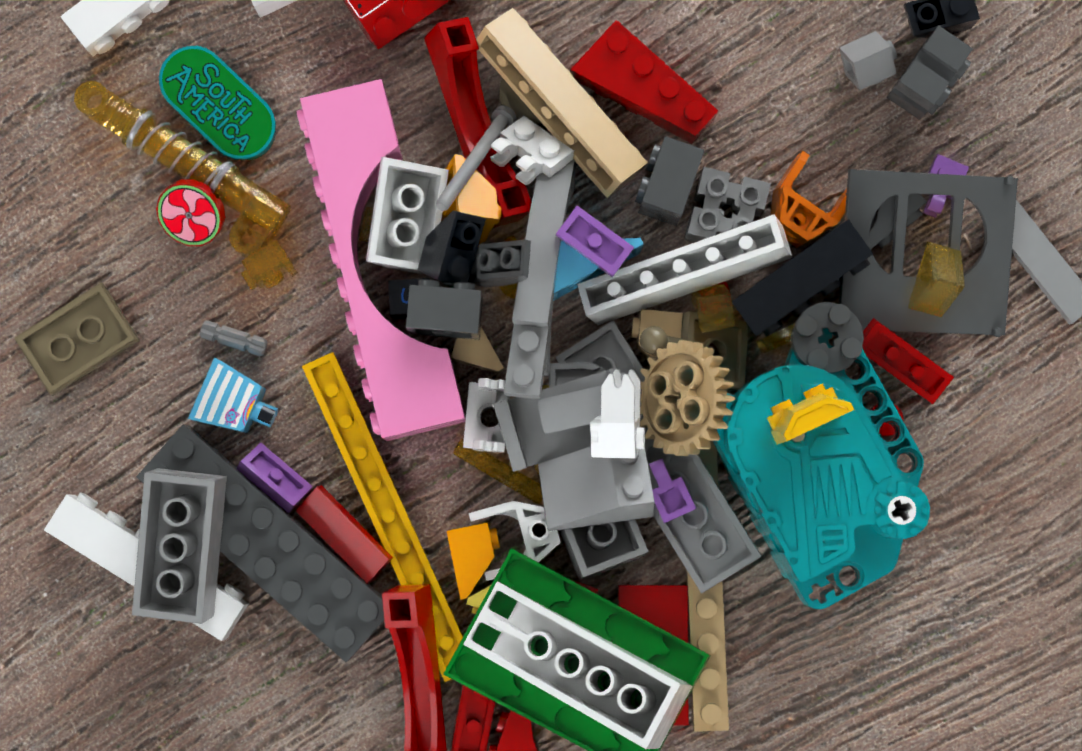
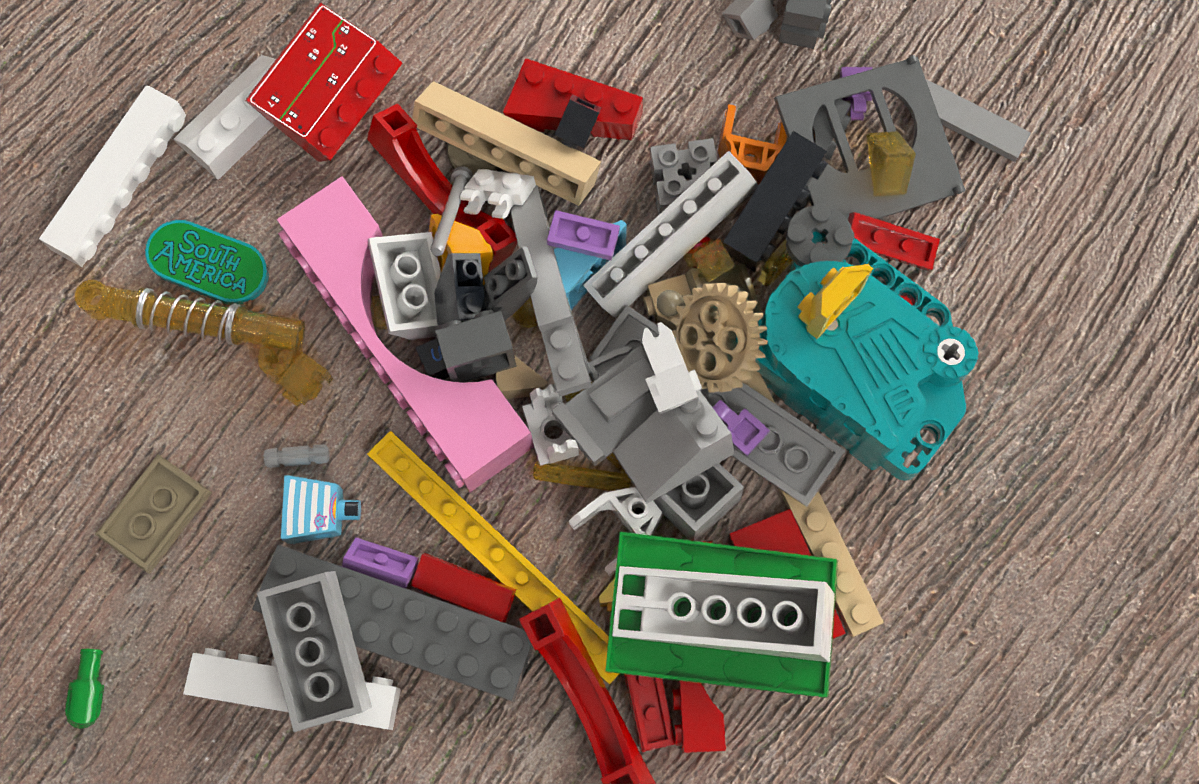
camera: 15 degrees left, 10 degrees down
(190, 212) = (216, 360): tile -> none
(471, 554) = (586, 558): light orange slope -> none
(640, 113) = (577, 122): none -> black brick
(671, 180) = (625, 170): dark grey brick -> none

